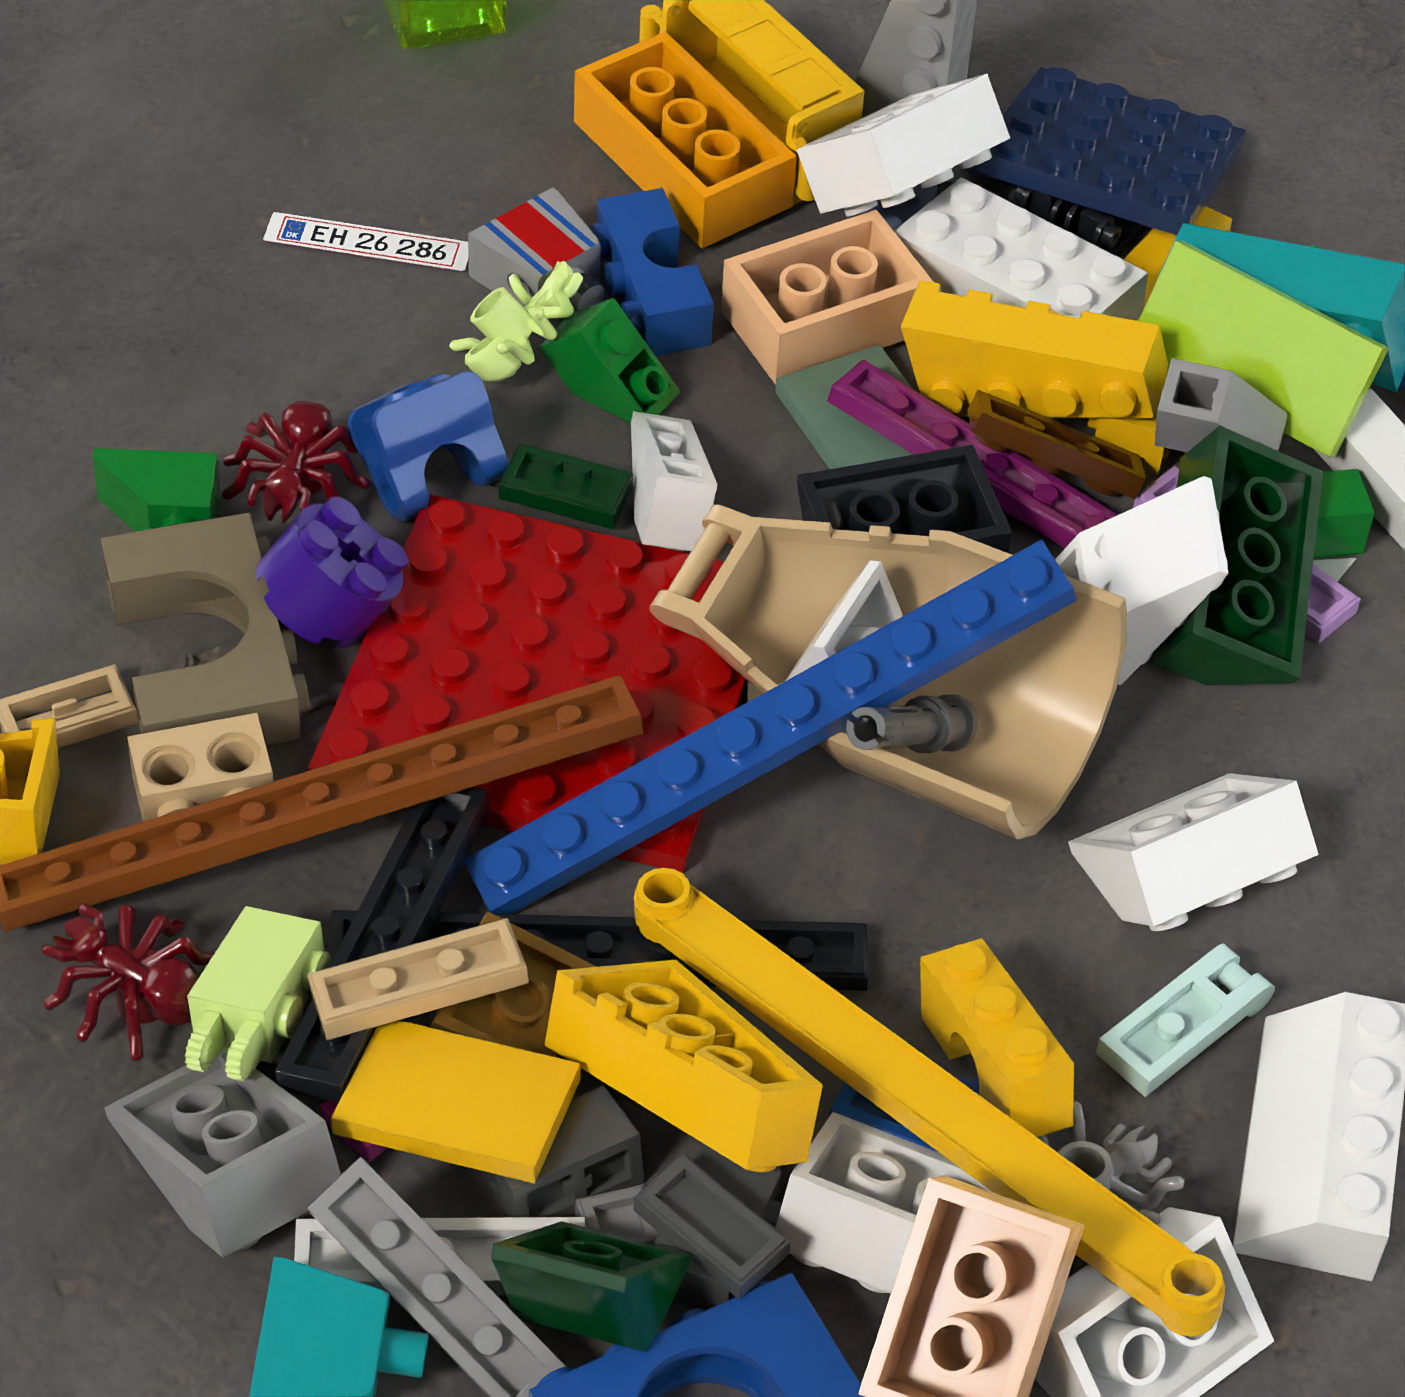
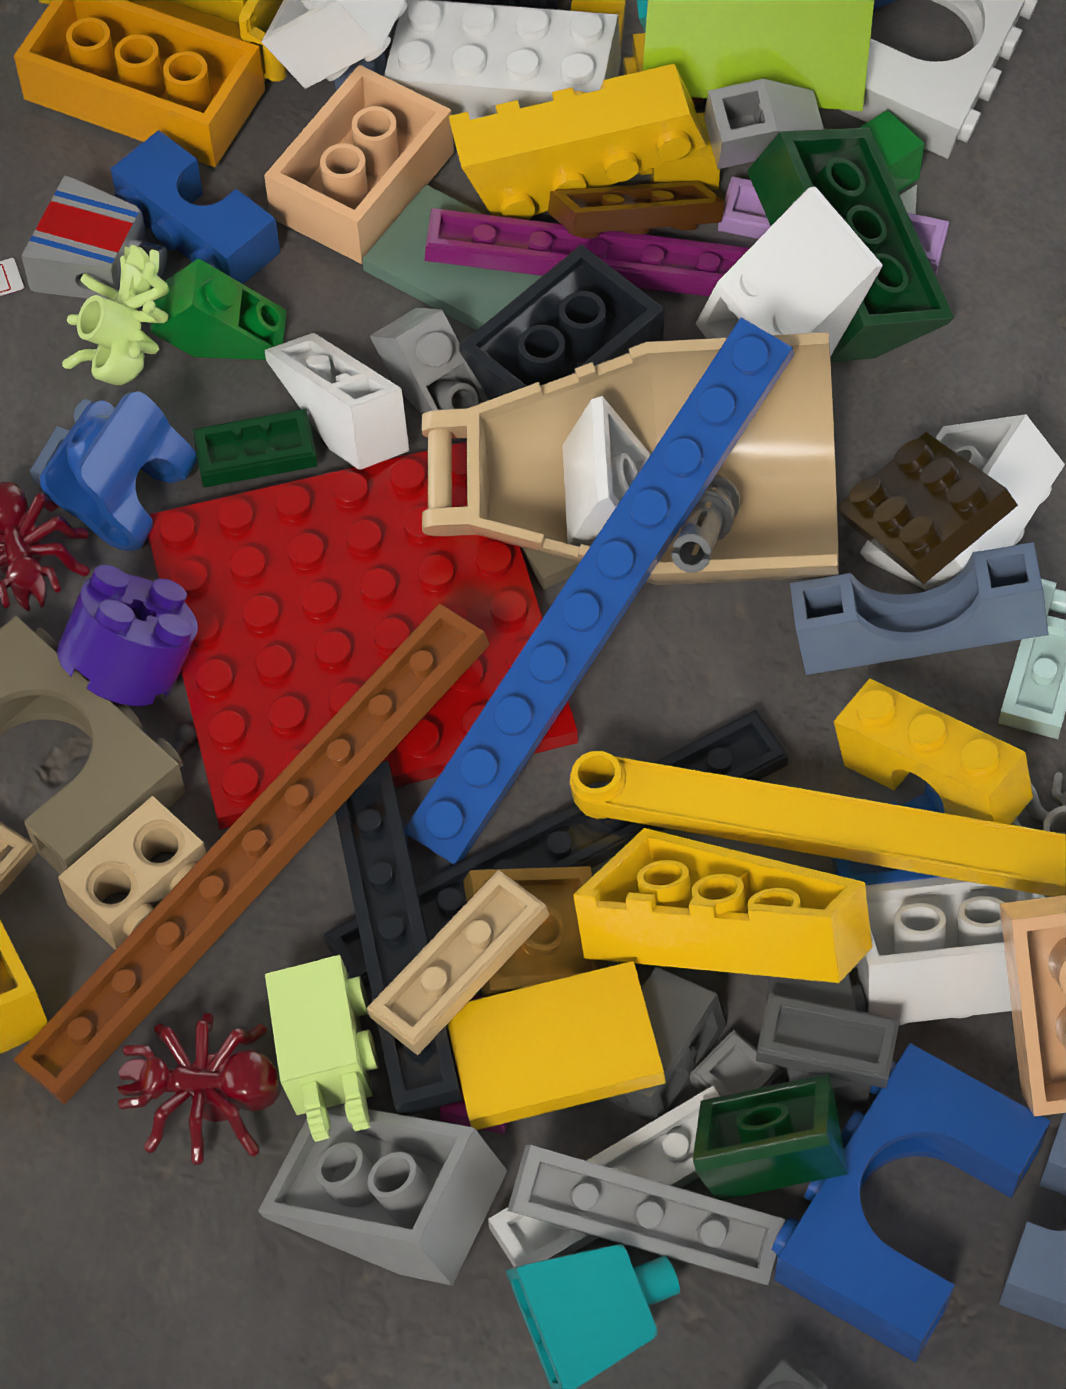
camera: 25 degrees left, 10 degrees up
(767, 476) = (427, 362): none -> light grey slope
(1000, 888) = (986, 604): none -> sand blue arch
(1141, 815) = (926, 506): none -> dark brown plate

